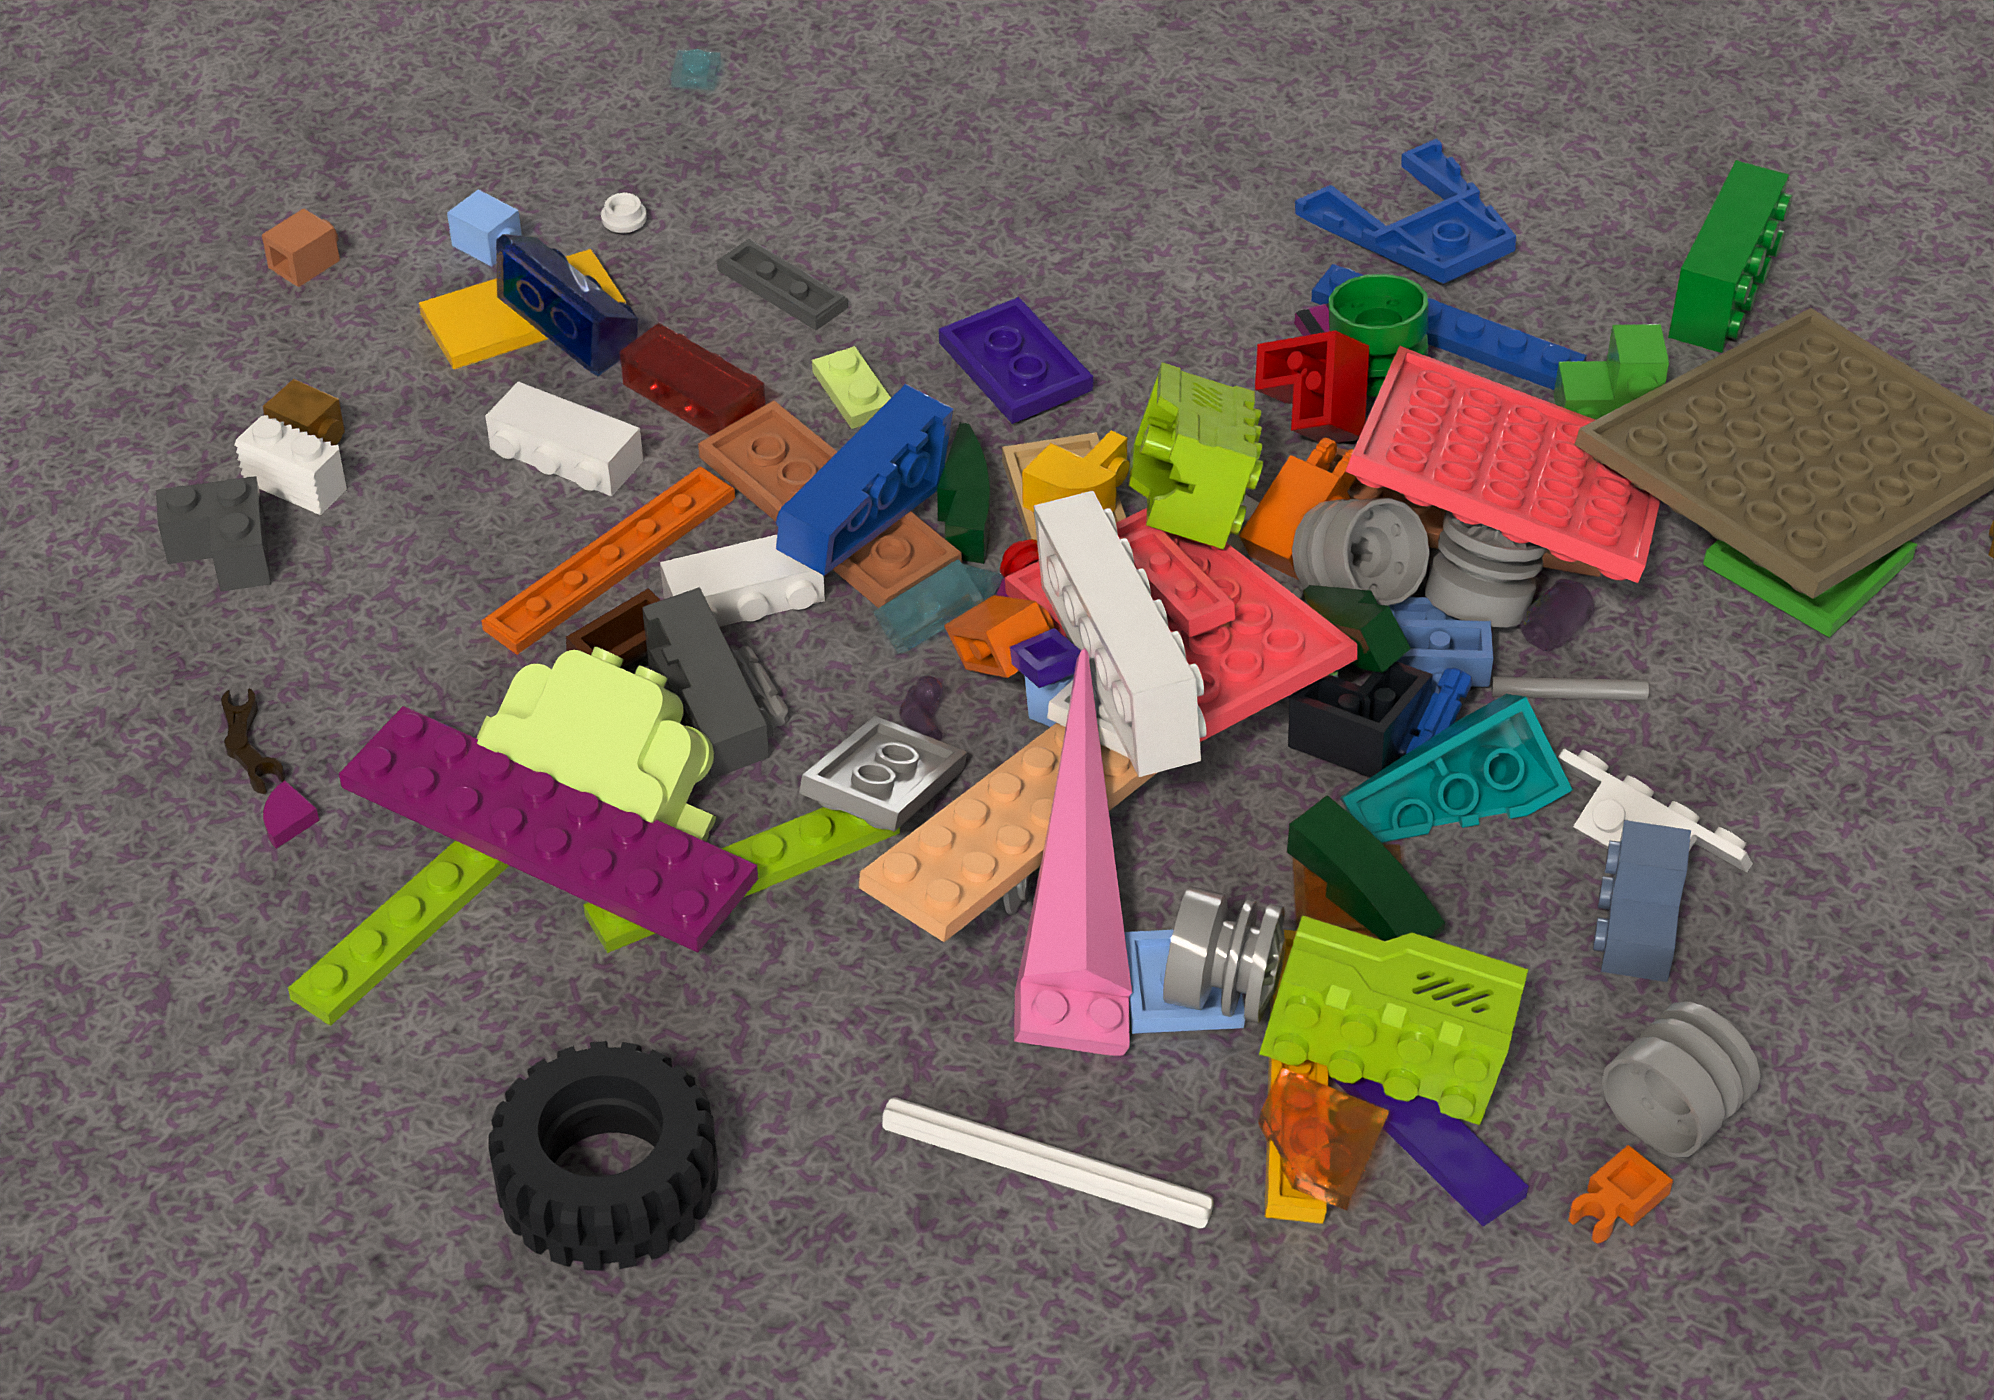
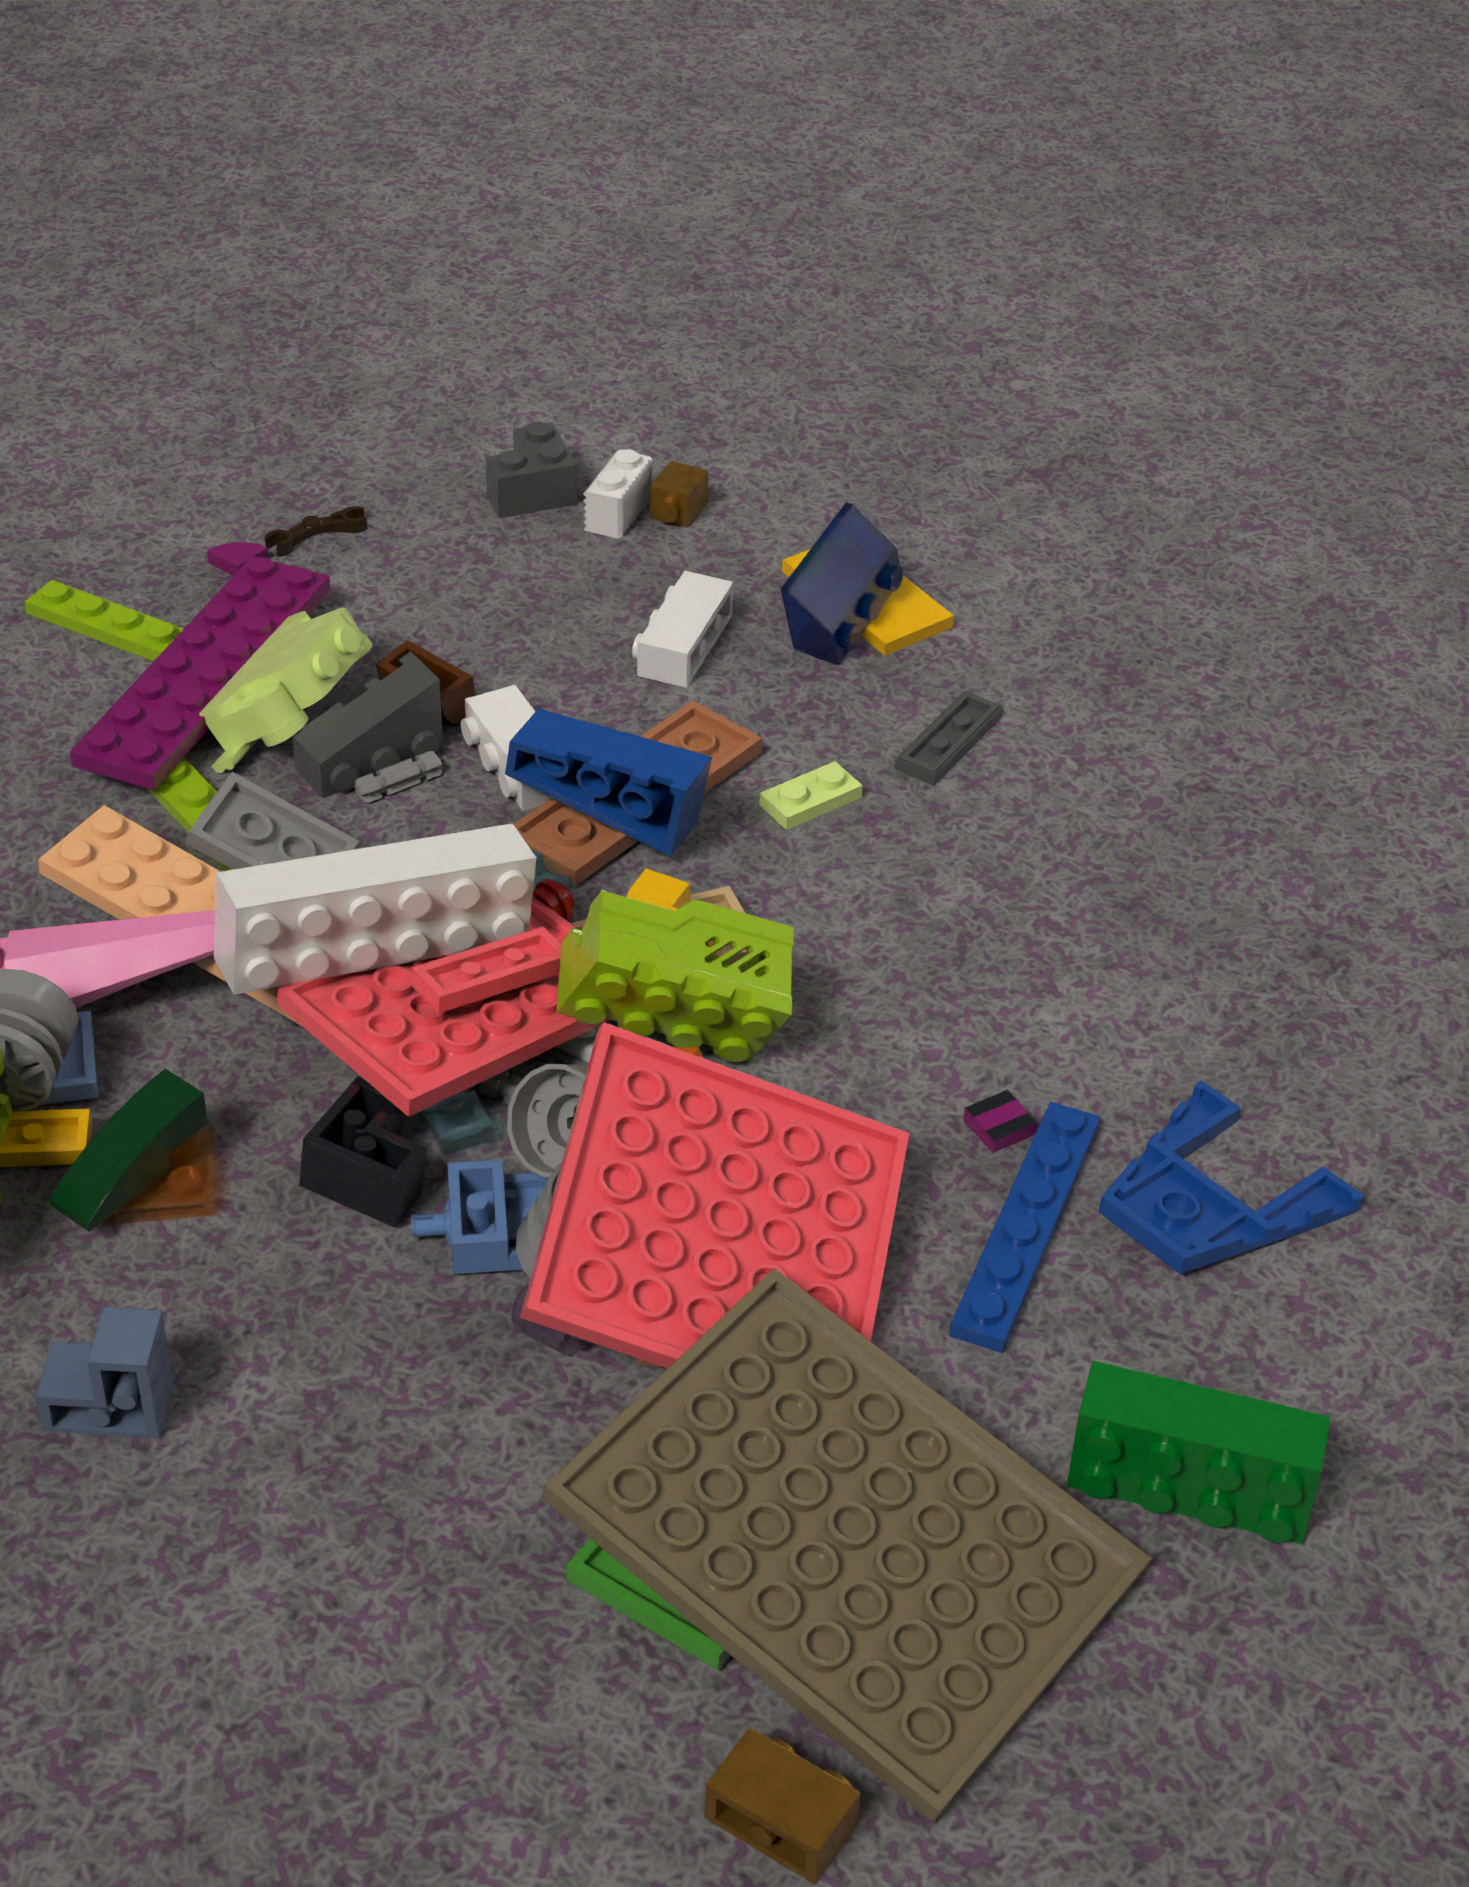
camera: 80 degrees right, 5 degrees down
(301, 247) = (898, 462): nougat brick -> none
(478, 224) = (956, 551): light blue brick -> none
(607, 560) = (549, 679): orange tile -> none
(623, 213) = (1014, 629): white plate -> none
(689, 380) = (780, 687): clear red brick -> none
(696, 69) = (1254, 650): clear light blue plate -> none
(965, 496) = (698, 862): dark green slope -> none
(1015, 360) = (871, 891): dark purple plate -> none
(1322, 380) = (864, 1080): red brick -> none
(1364, 621) = (453, 1119): dark green slope -> none
(1383, 314) = (957, 1134): green wheel -> none
(1443, 706) = (381, 1217): blue axle -> none
(1471, 770) = (314, 1250): teal wedge -> none
(1571, 688) = (457, 1342): light grey bar -> none
(1632, 801) = (251, 1399): white bracket -> none
(1633, 367) = (933, 1341): bright green brick -> none

